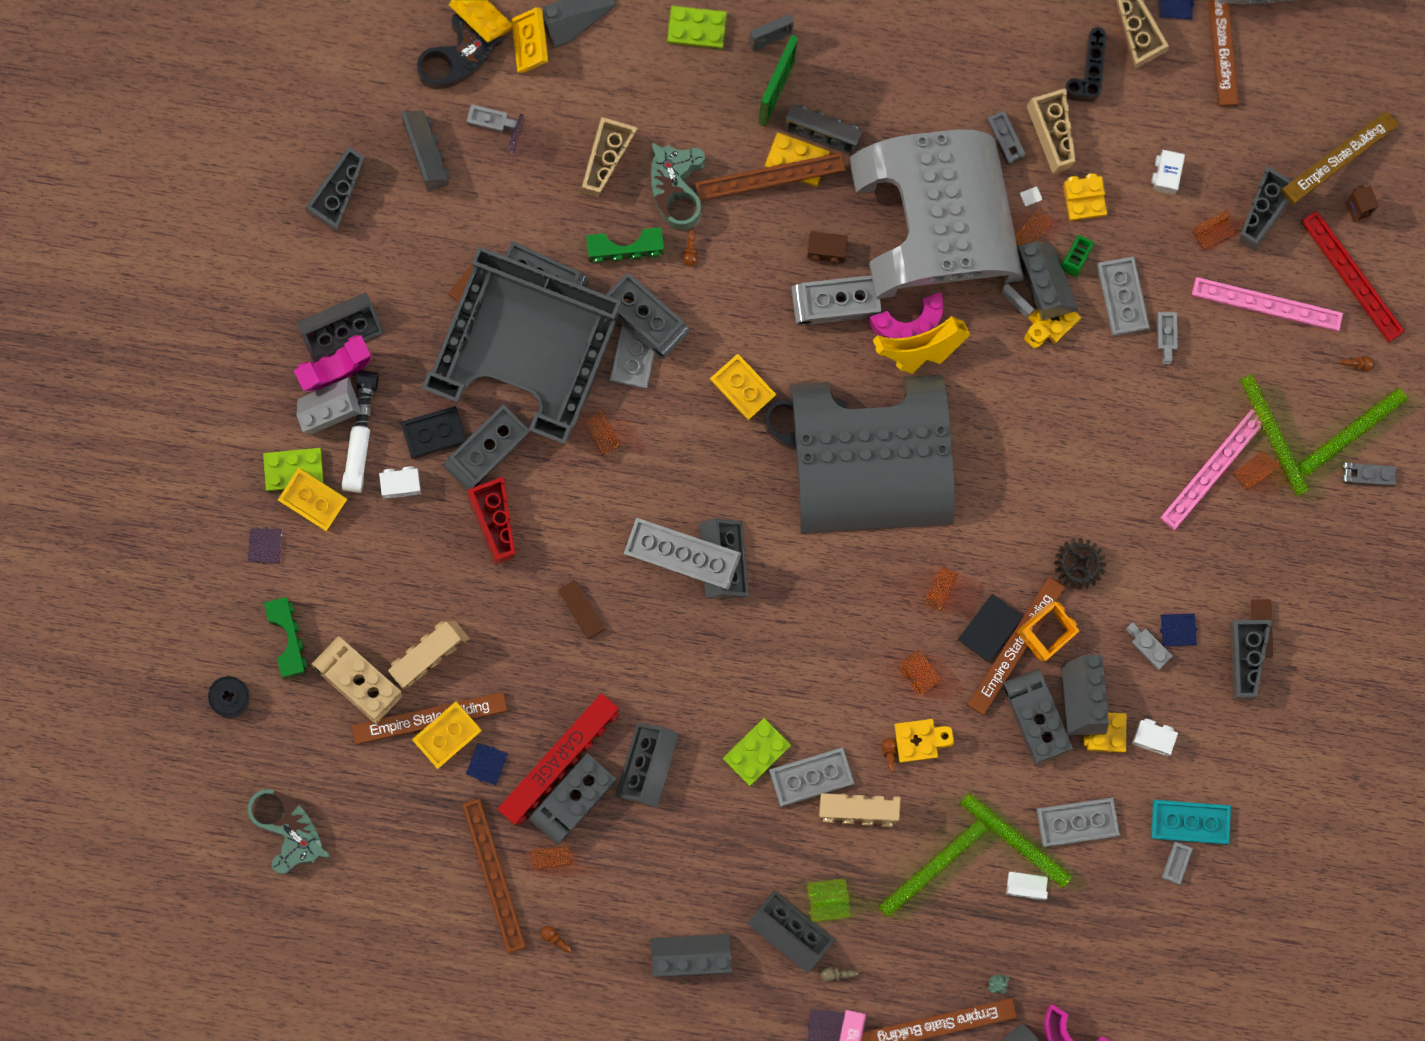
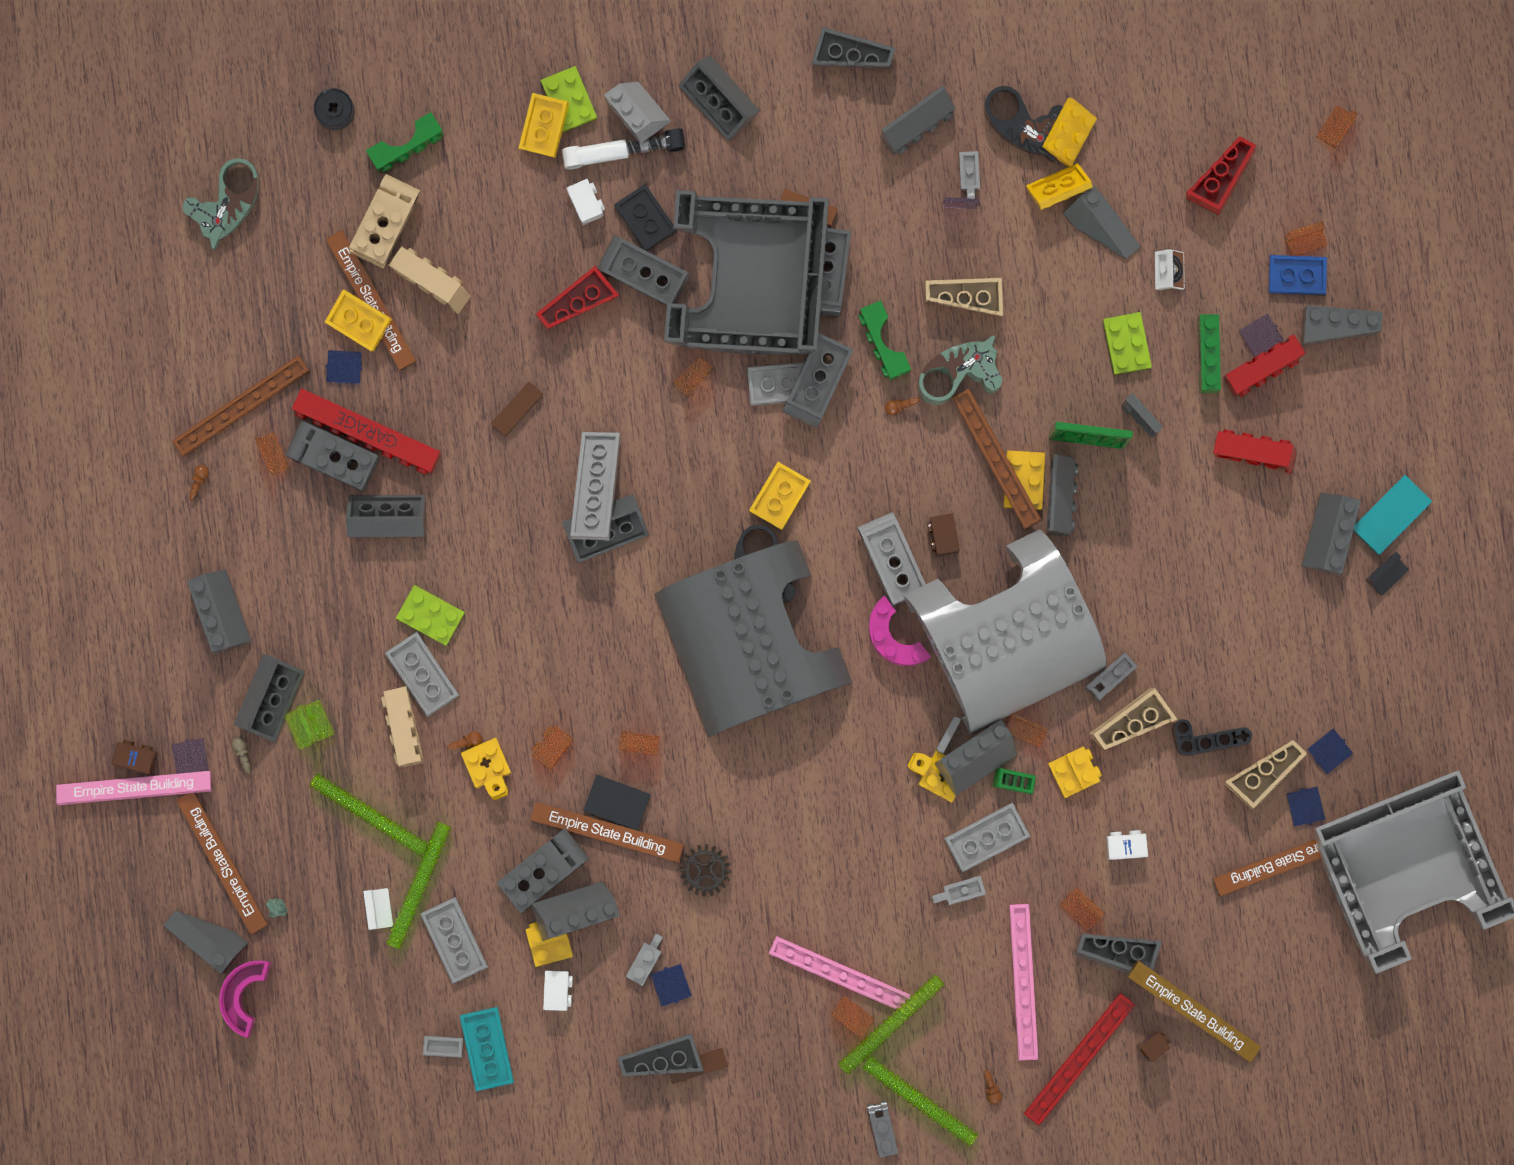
camera: 75 degrees right, 5 degrees up
(265, 545) = (488, 96): clear purple piece -> none
(332, 369) = (675, 102): dark pink brick -> none
(932, 345) = (864, 649): yellow arch -> none
(1031, 196) = (1060, 719): white sticker -> none
(1033, 642) = (621, 872): light orange window -> none

